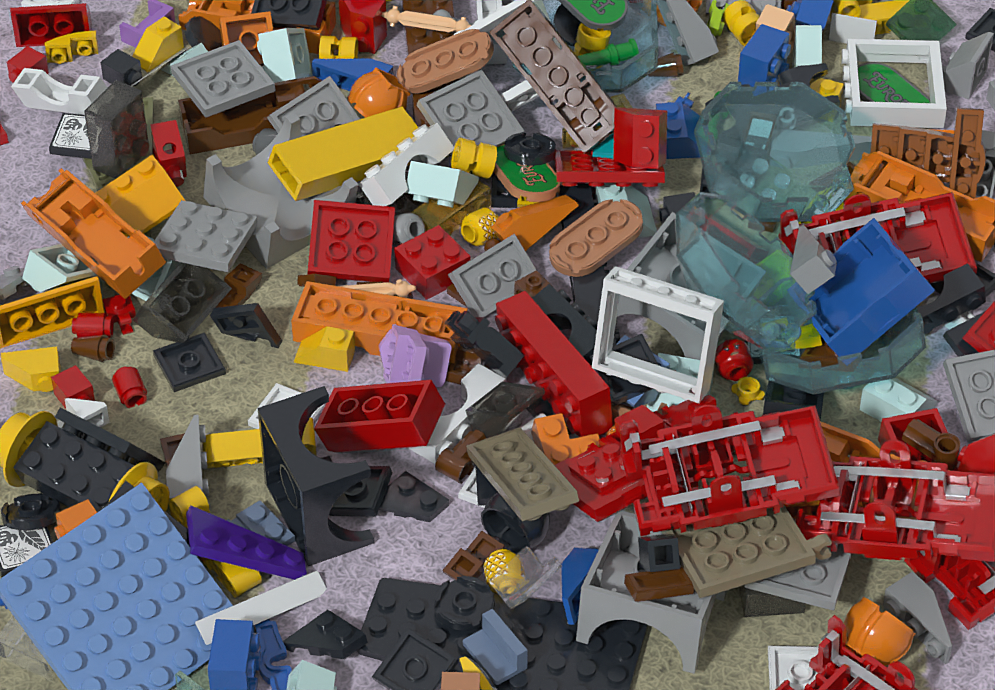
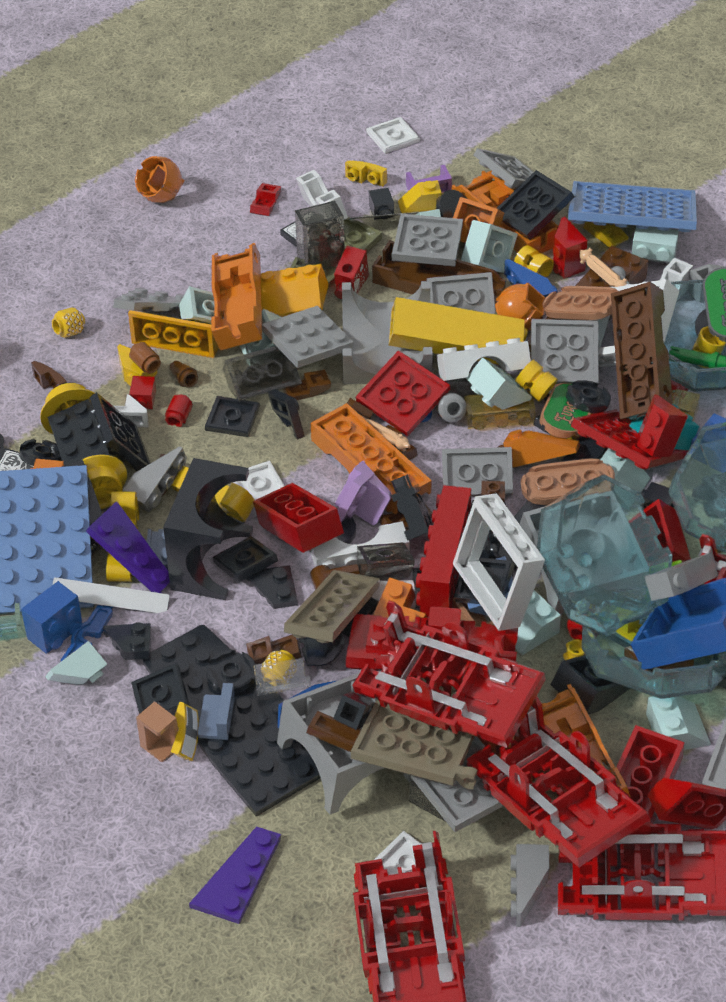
camera: 40 degrees right, 0 degrees up
(26, 58) = (327, 169): red brick -> none
(43, 23) = (359, 147): red slope -> none
(51, 349) = (144, 357): none -> dark orange brick
(92, 324) = (196, 359): red brick -> none
(121, 310) = (219, 358): red plate -> none
(327, 349) = (323, 458): yellow slope -> none
(429, 260) = (446, 432): red brick -> none
(477, 226) = (501, 428): yellow head -> none
(876, 633) = (475, 869): orange piece -> none
(937, 446) = (647, 762): reddish brown piece -> none

